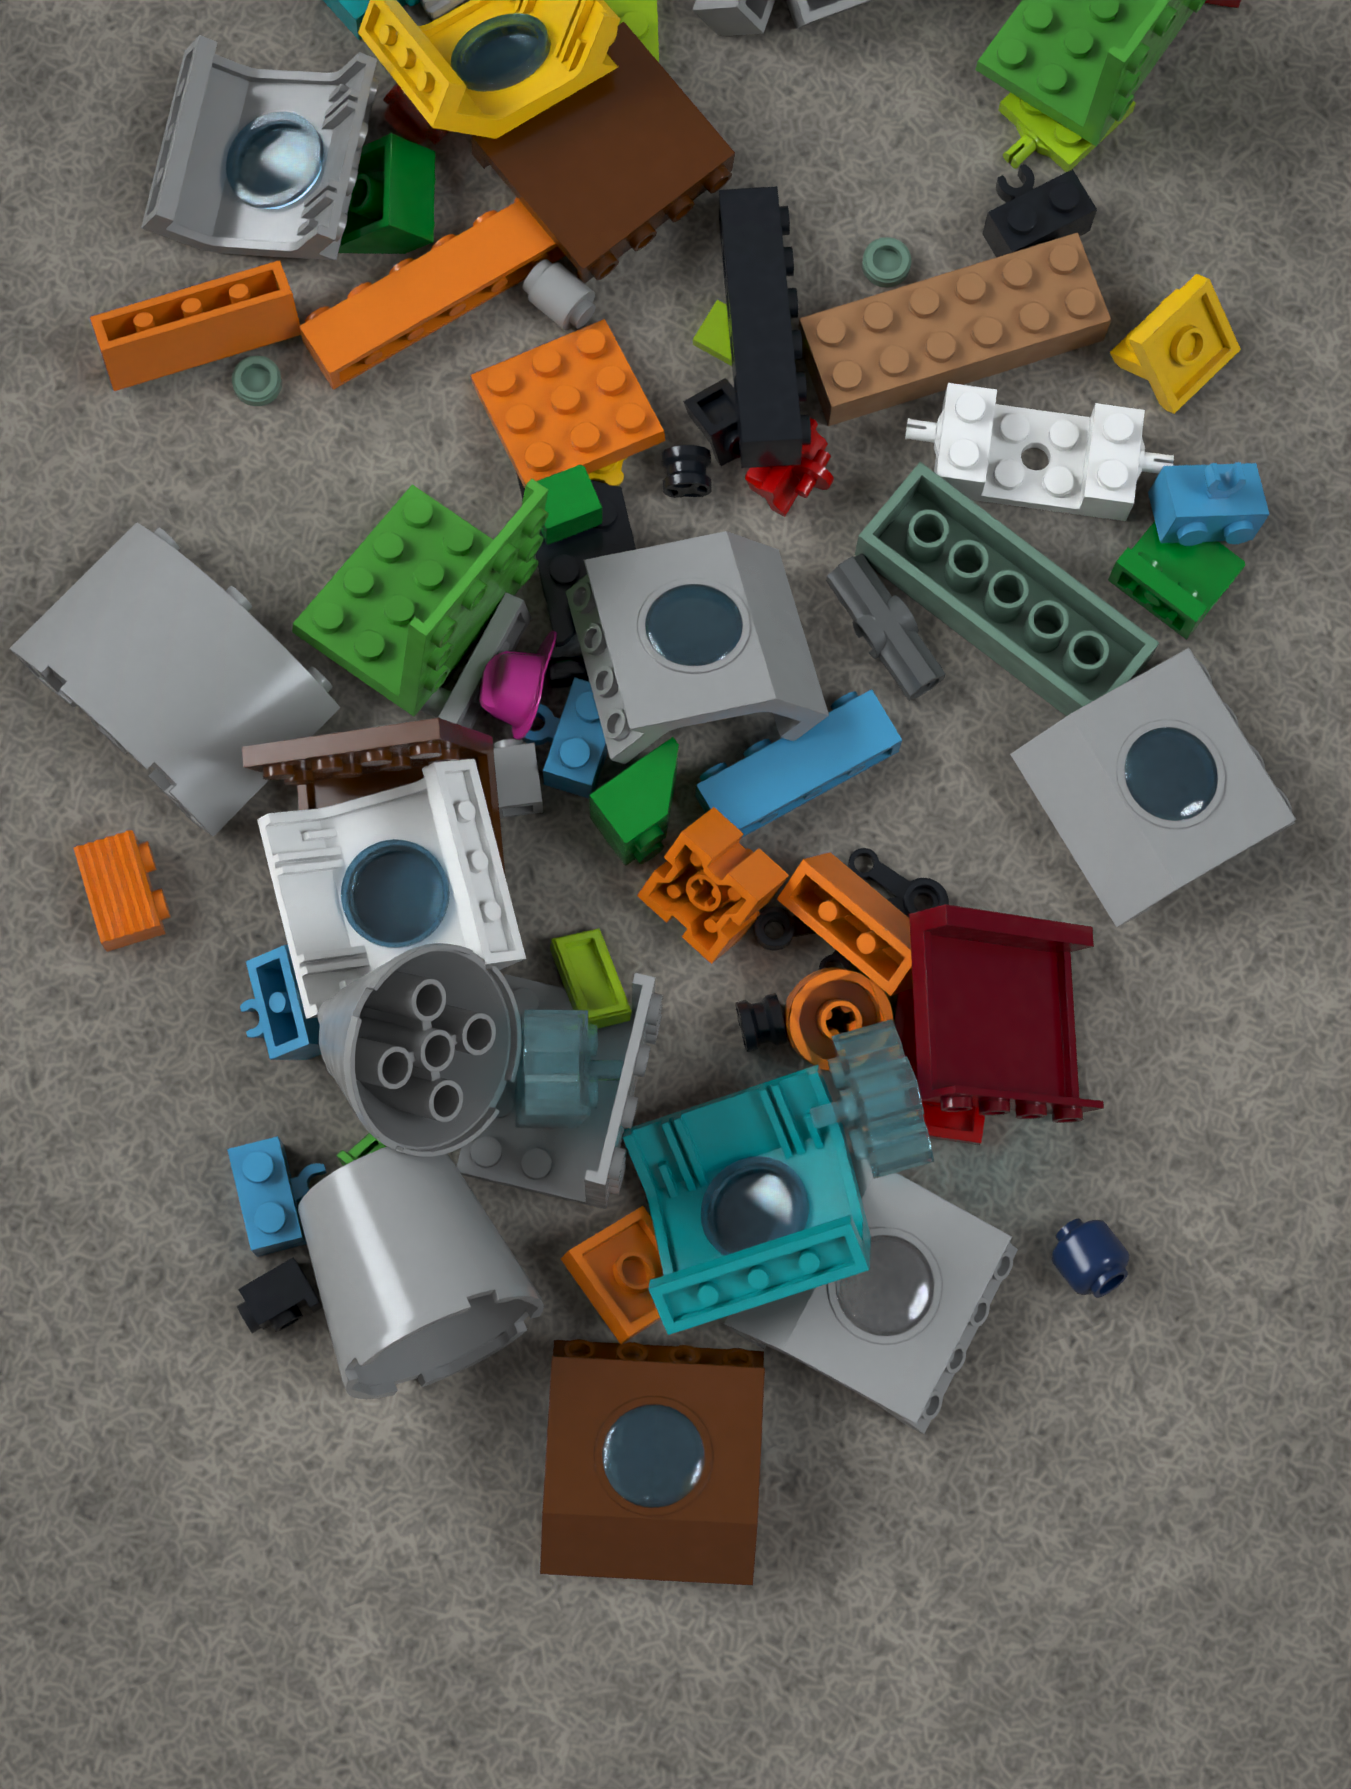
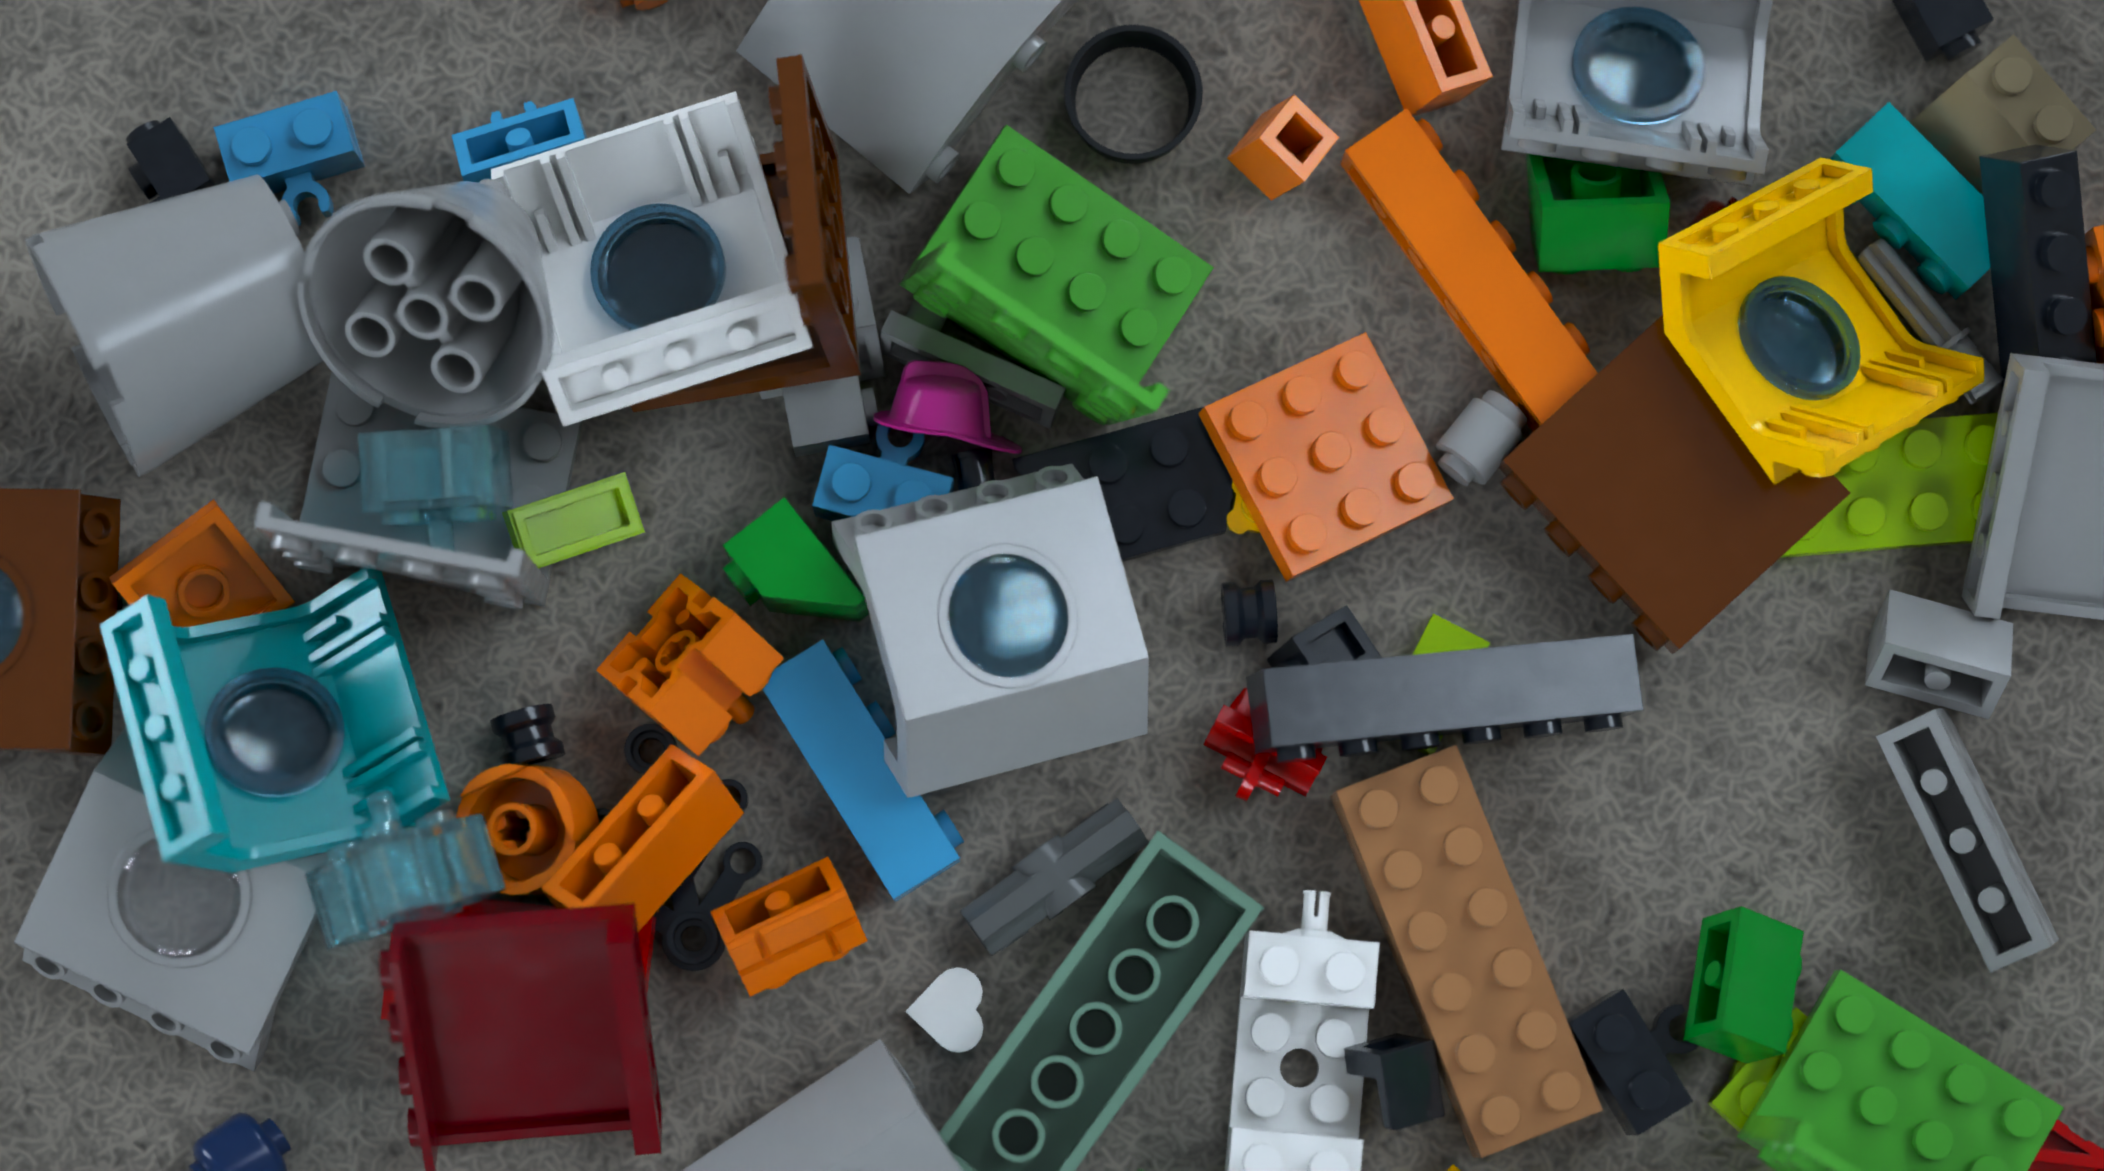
camera: 85 degrees right, 5 degrees up
(256, 380) = (1343, 67): sand green tile -> none
(260, 492) = (1140, 37): none -> black tyre
(323, 421) = (1283, 147): none -> orange brick
(570, 504) = (1183, 452): green panel -> none
(886, 262) = (1561, 864): sand green tile -> none
(919, 823) = (789, 926): none -> orange brick
(984, 712) = (949, 1010): none -> white tile
(985, 131) = (1744, 985): none -> green brick
(1045, 373) = (1404, 1075): none -> black panel

